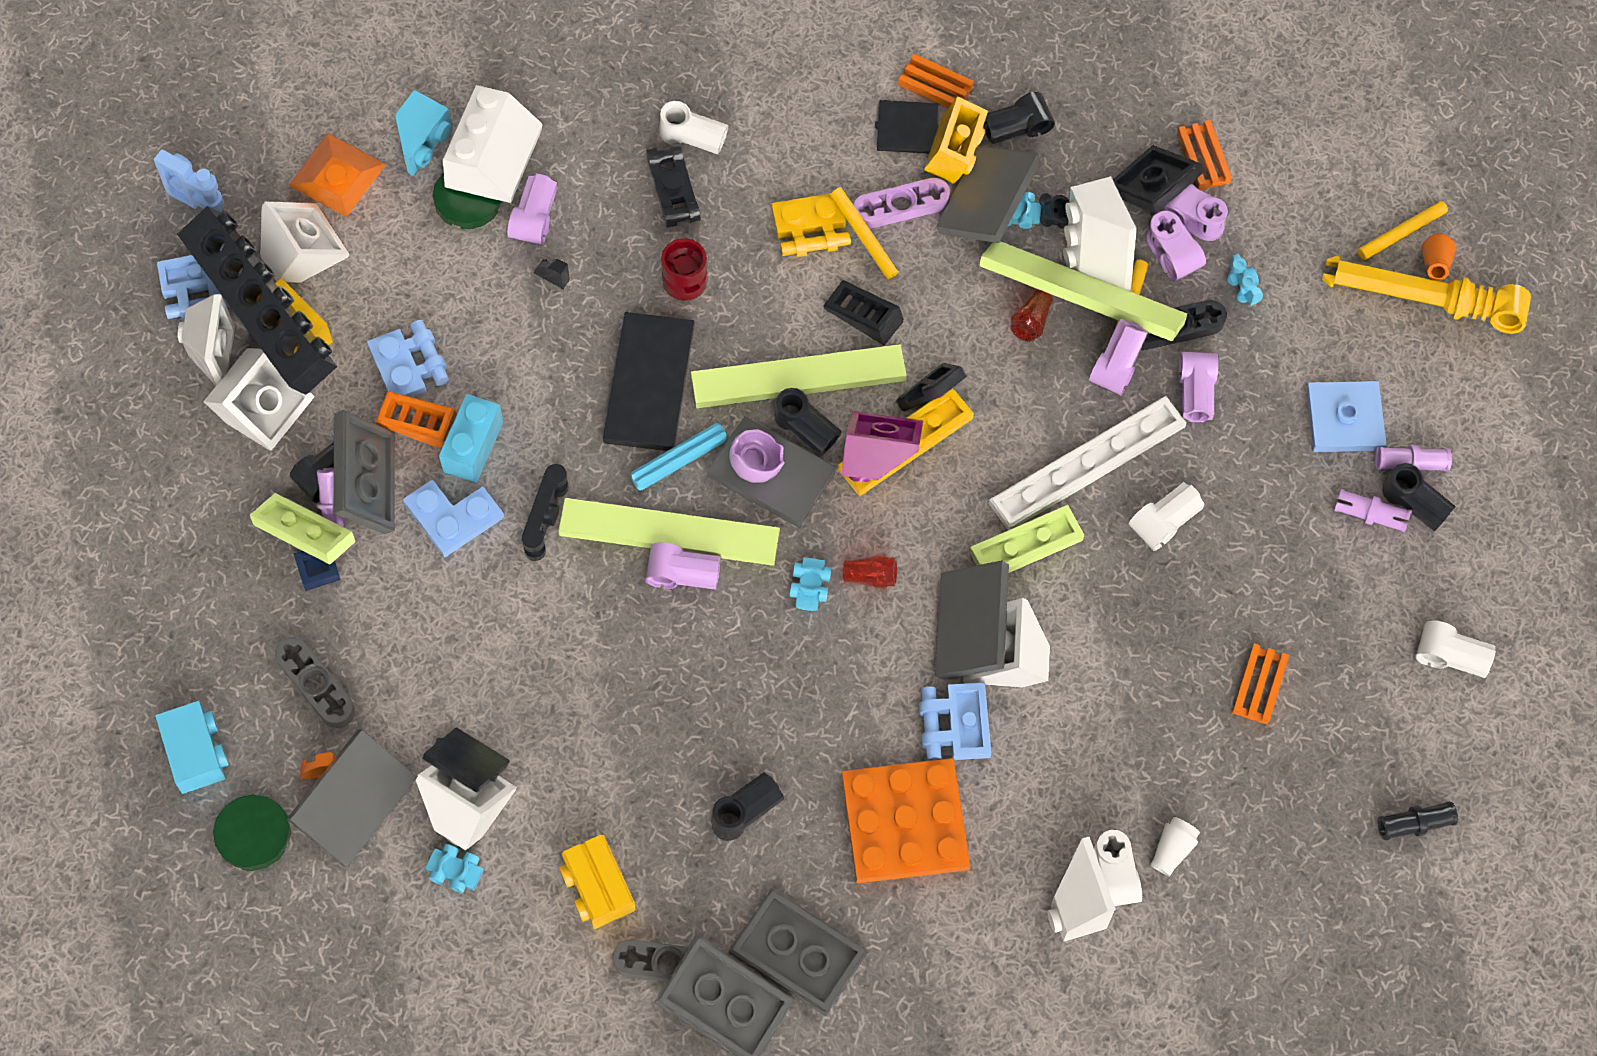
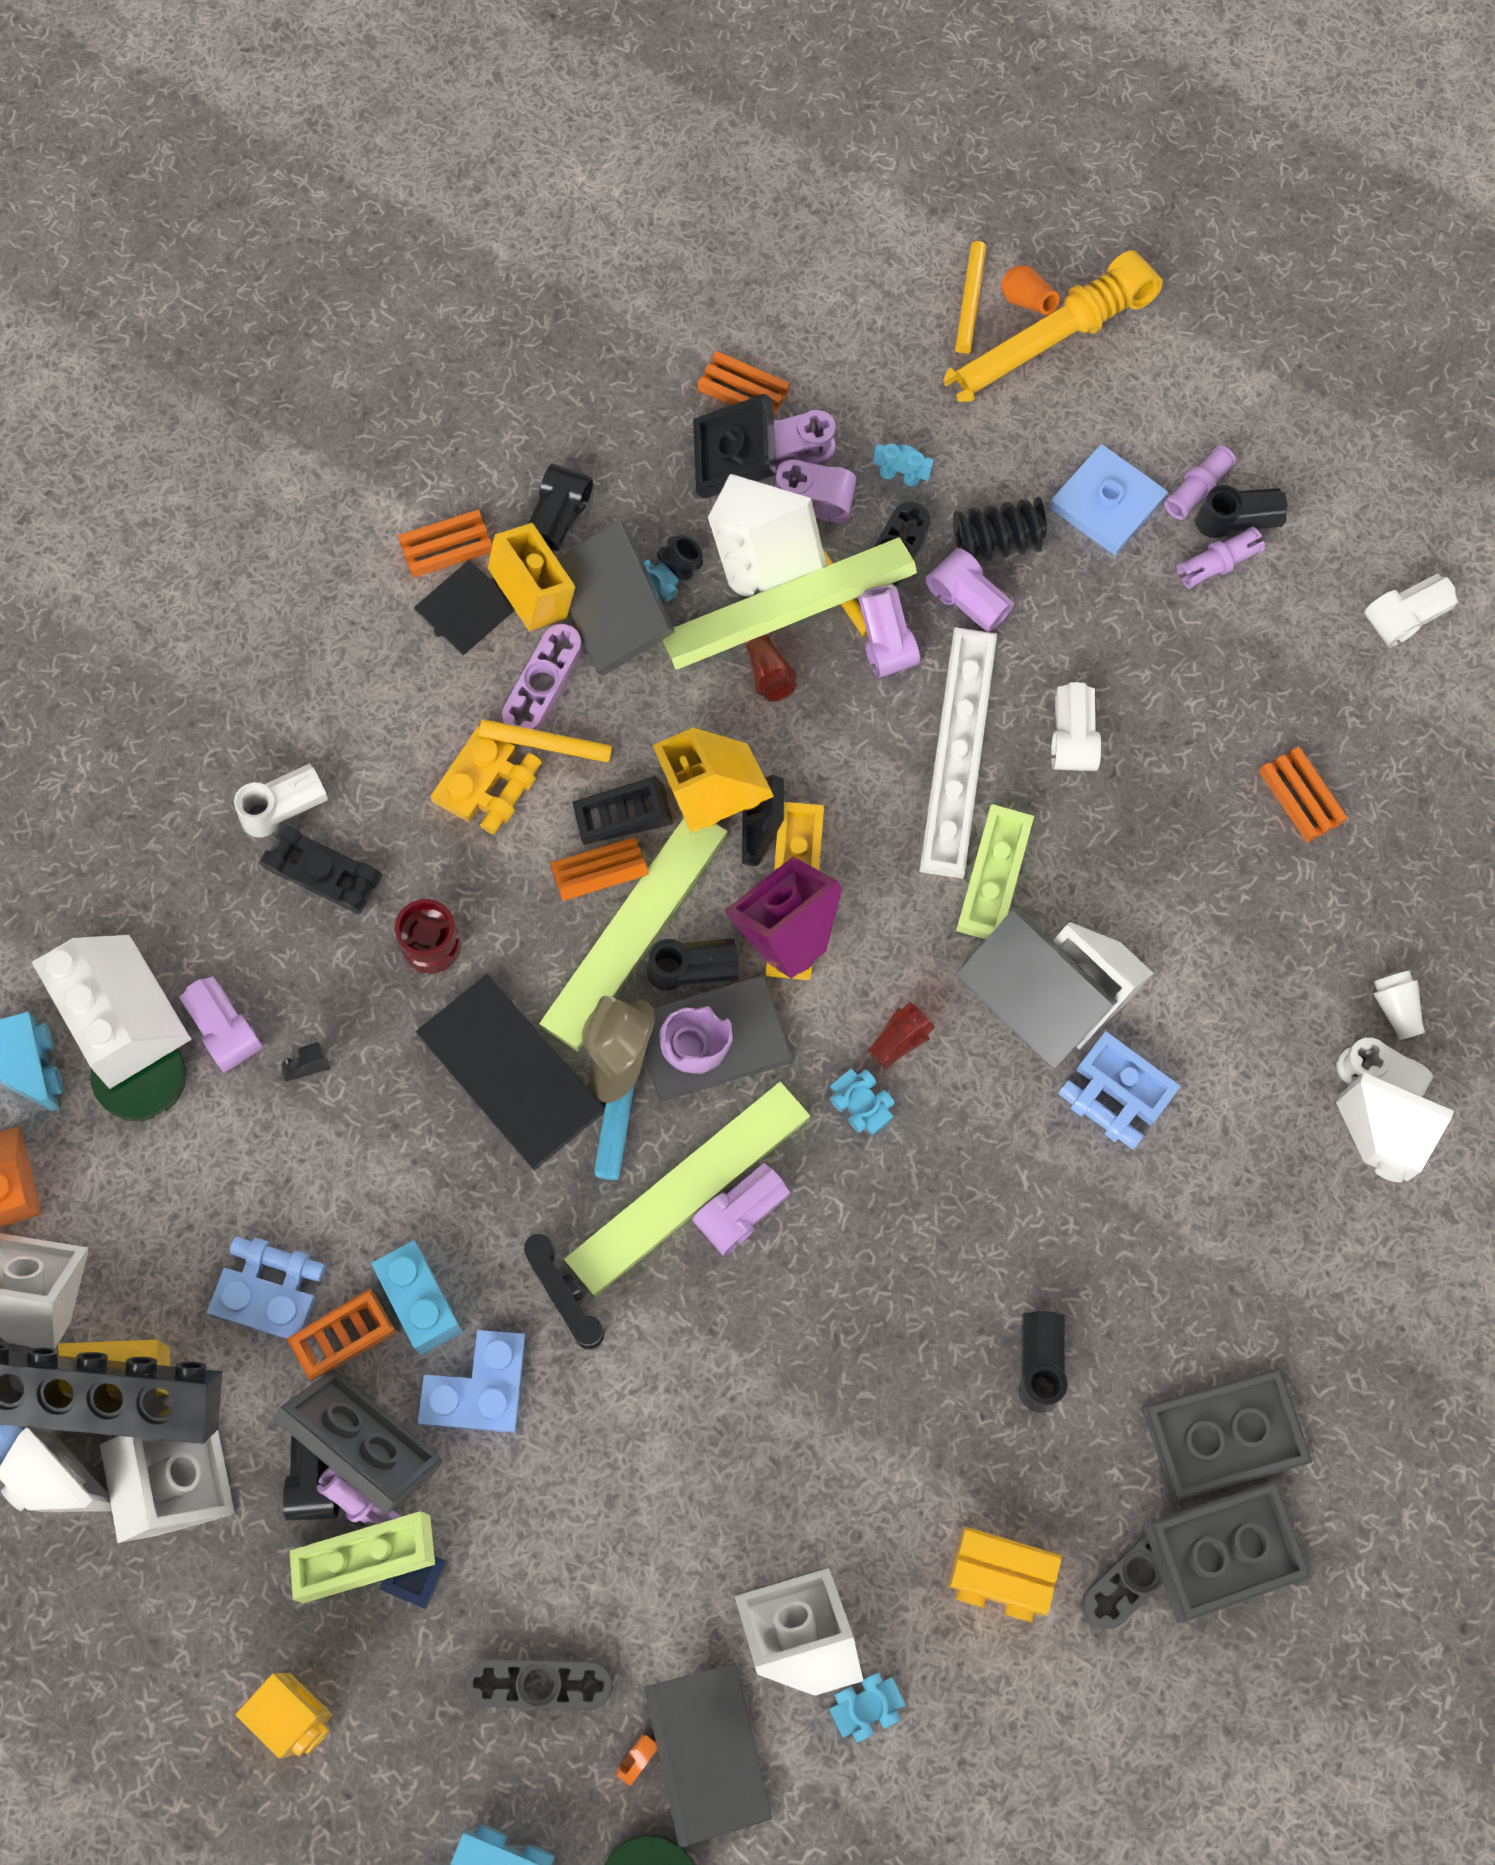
camera: 50 degrees left, 5 degrees up
(184, 558) = (286, 1716): none -> yellow brick
(466, 759) = (764, 1598): black piece -> none
(715, 415) = (617, 1042): none -> dark tan piece
(814, 326) = (599, 869): none -> orange tile
(905, 820) = (1176, 1222): orange plate -> none
(925, 333) = (711, 776): none -> yellow slope
(1254, 369) = (1001, 528): none -> black piece

